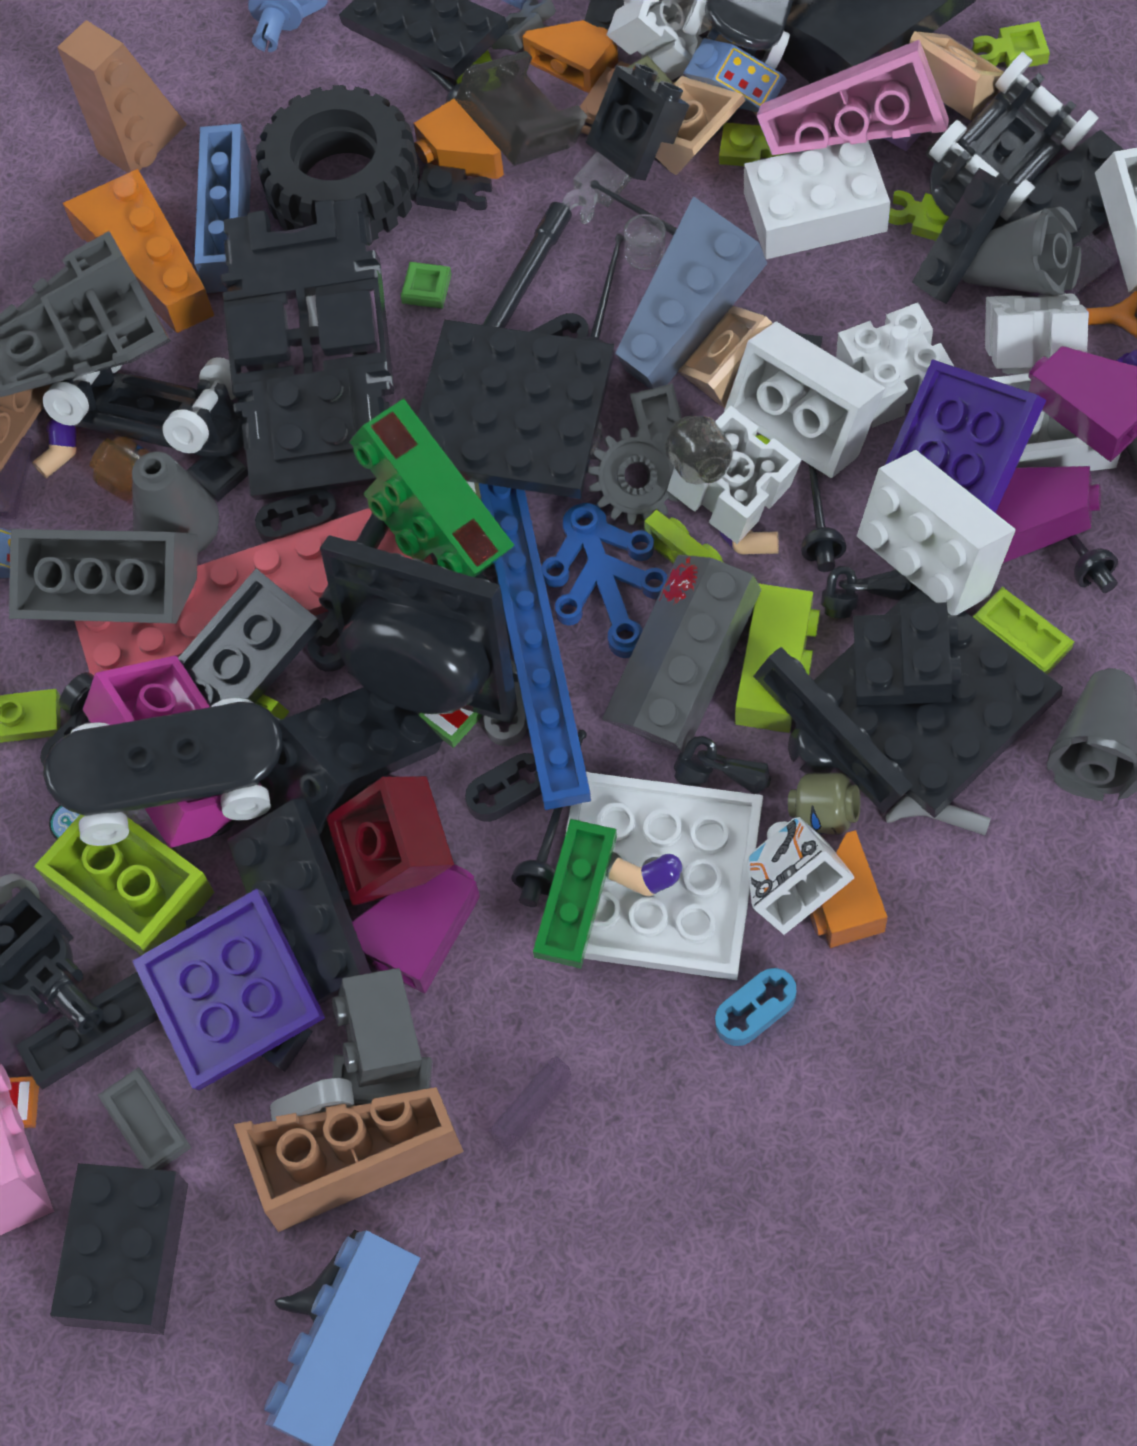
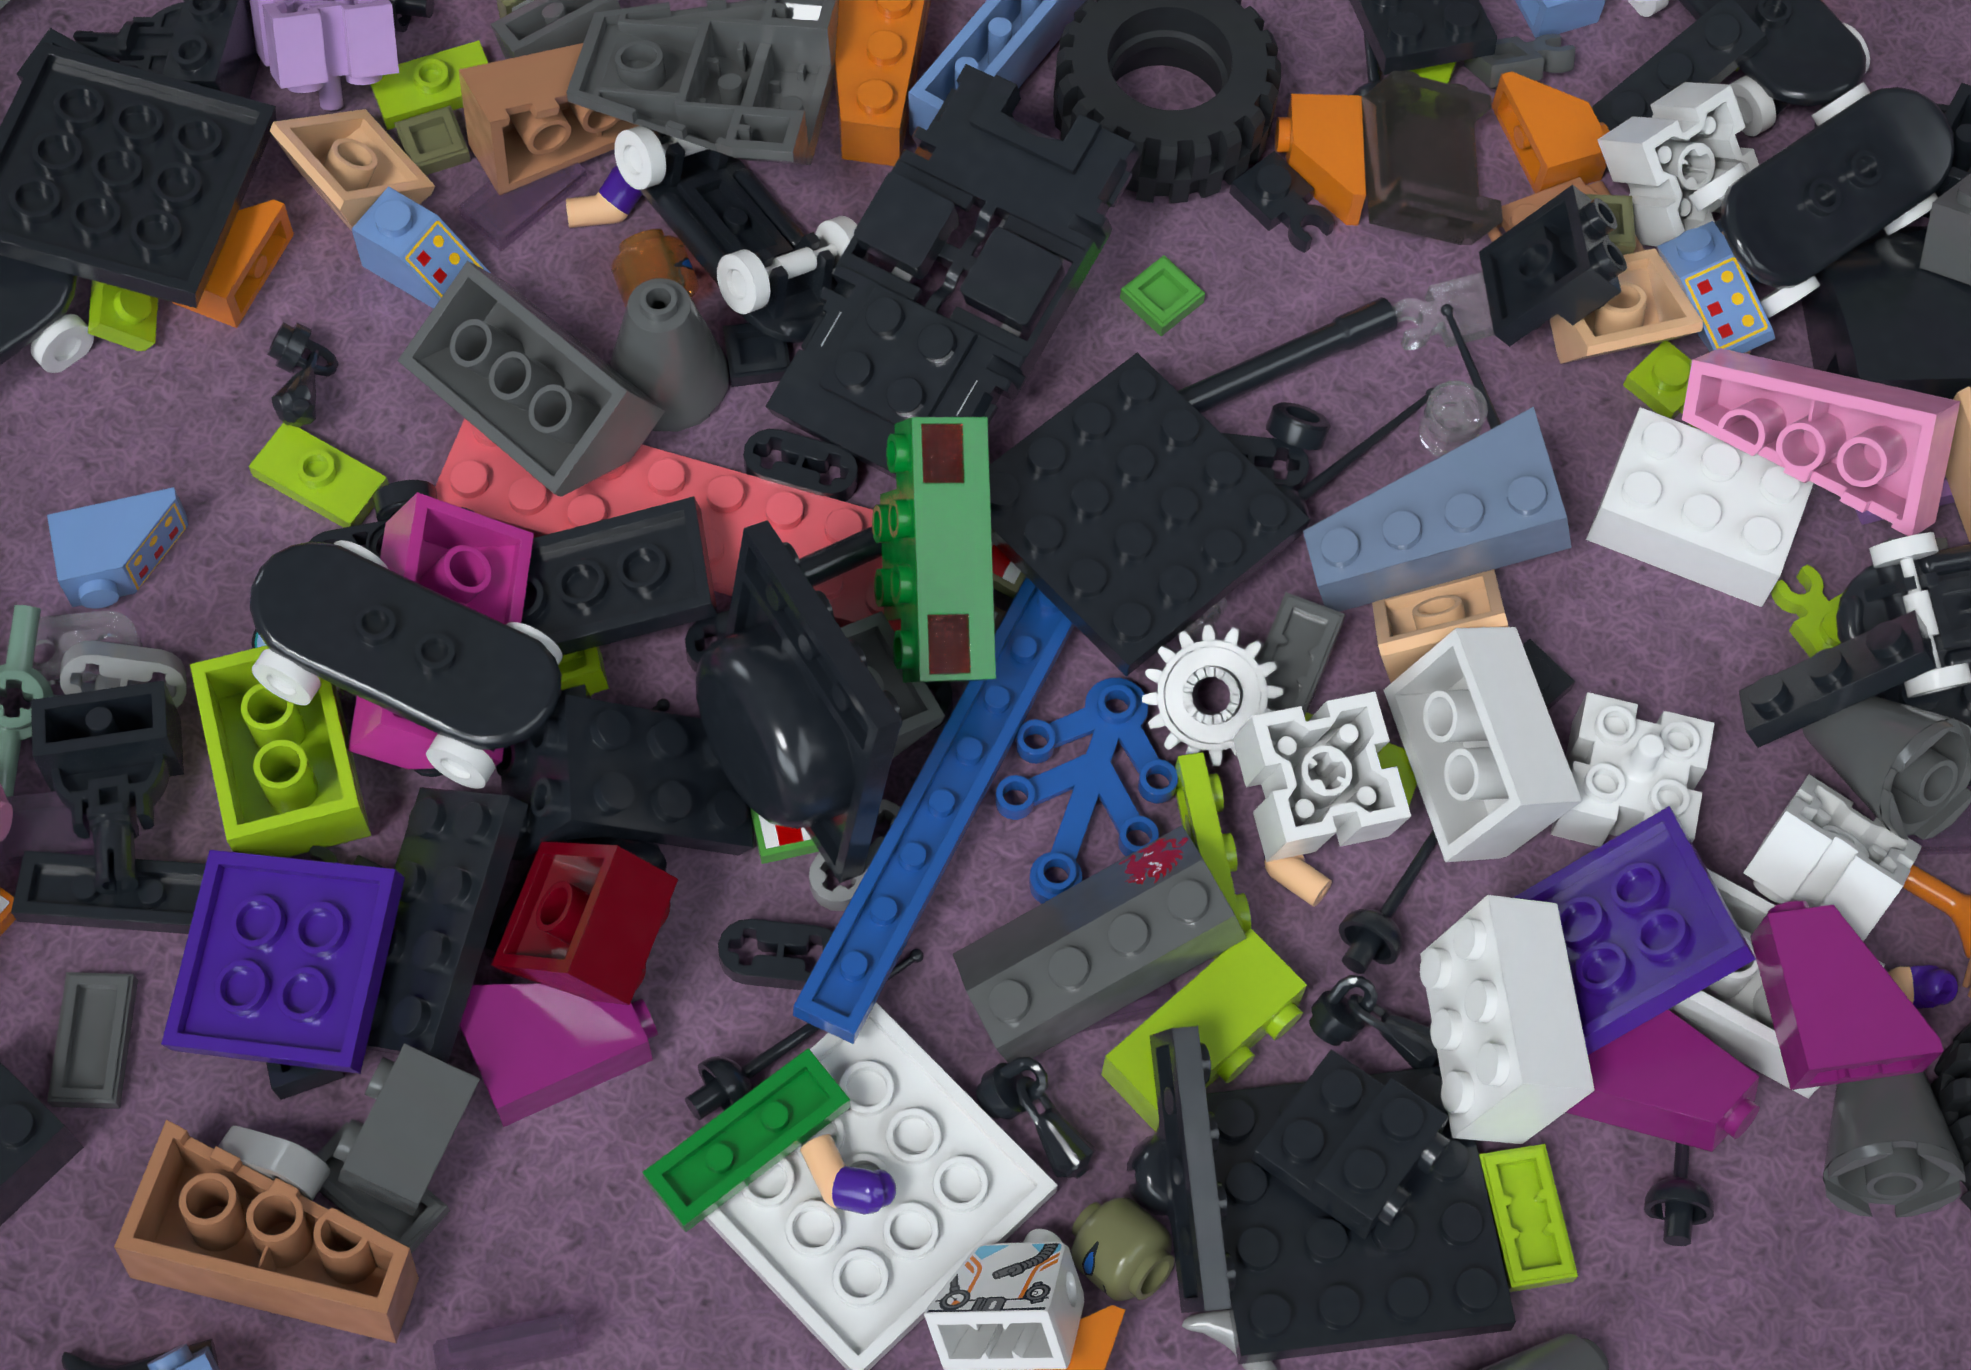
camera: 25 degrees right, 0 degrees up
(562, 303) = (1298, 426): none -> black tile
(699, 449) = (1285, 720): clear smoke head -> none

